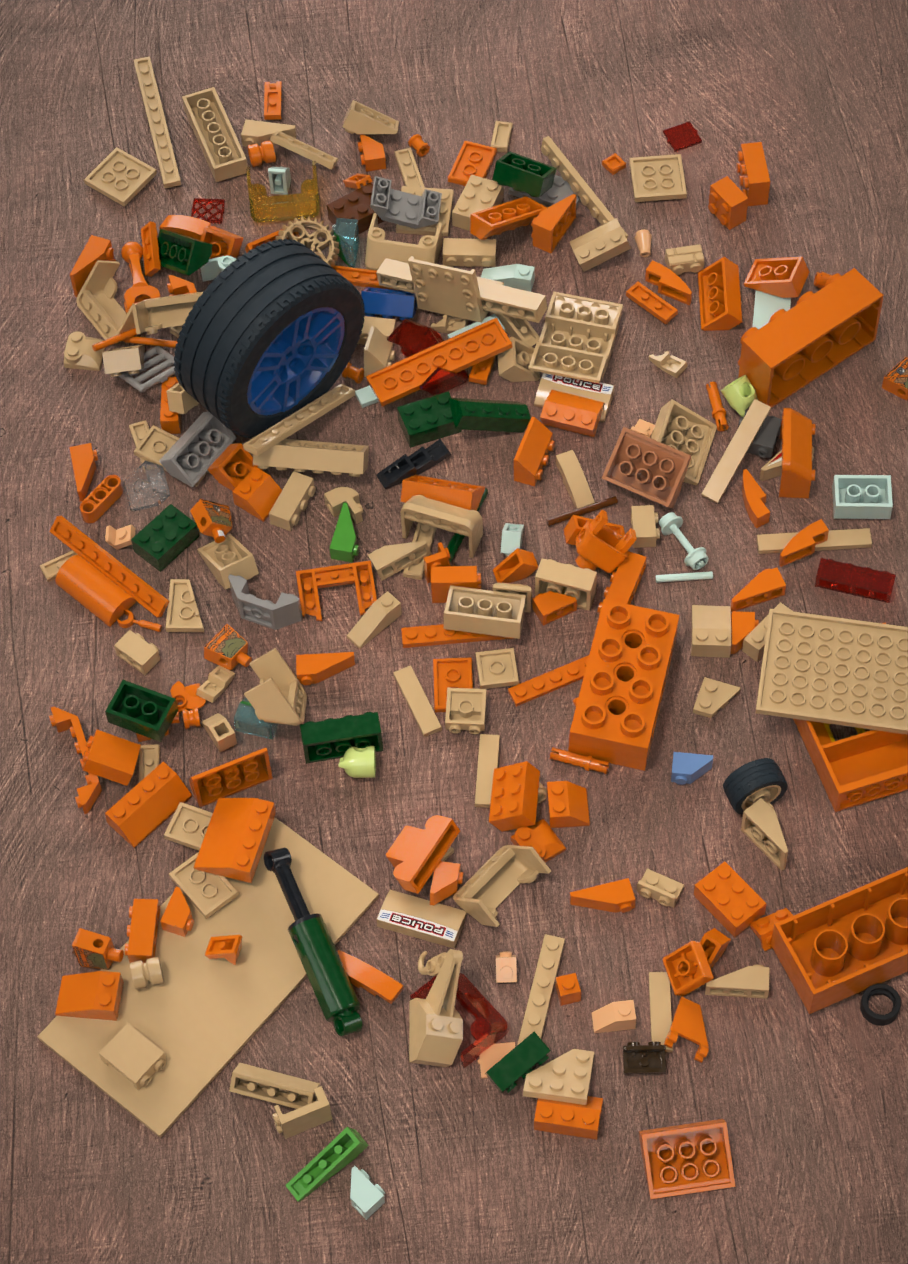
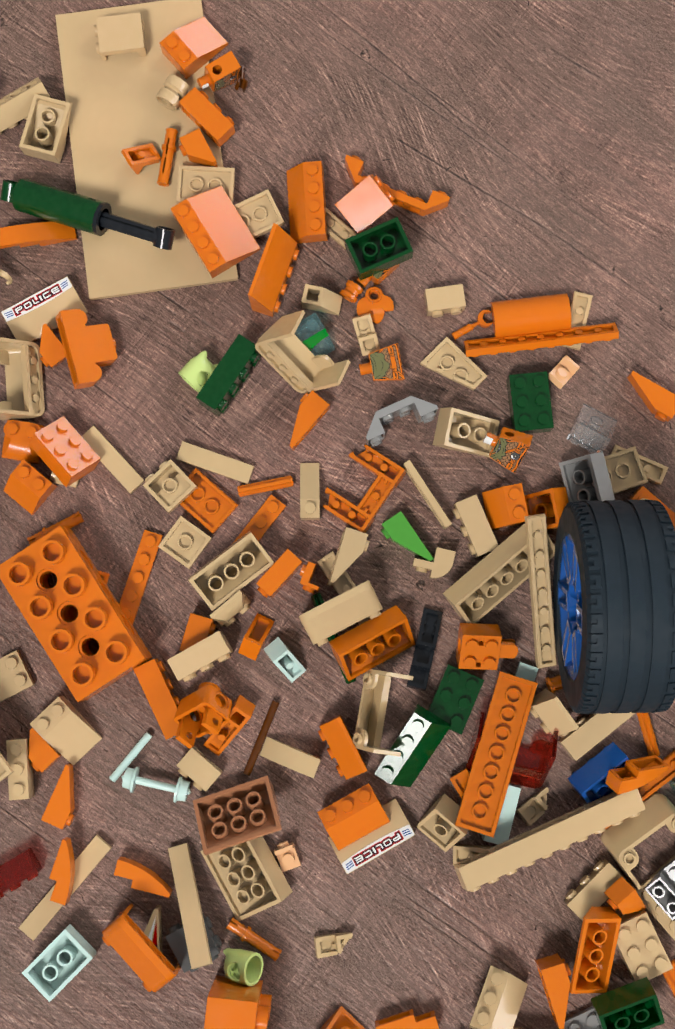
camera: 135 degrees right, 25 degrees up
(101, 499) = (612, 378): orange beam -> none
(205, 933) = (167, 157): none -> orange pin
(269, 1041) = (46, 129): none -> tan slope
(300, 547) = (426, 494): none -> tan tile
(369, 279) = (635, 773): none -> orange slope
(375, 427) = (482, 646): none -> orange brick
(400, 653) = (265, 486): none -> orange axle
(447, 290) = (550, 822): tan bracket -> none
(456, 229) = (624, 897): none -> orange slope
(472, 463) = (373, 711): none -> tan windscreen
(513, 275) = (539, 897): light aqua slope -> none
(577, 337) = (420, 889): tan slope -> none
(651, 302) = (403, 990): orange plate -> none

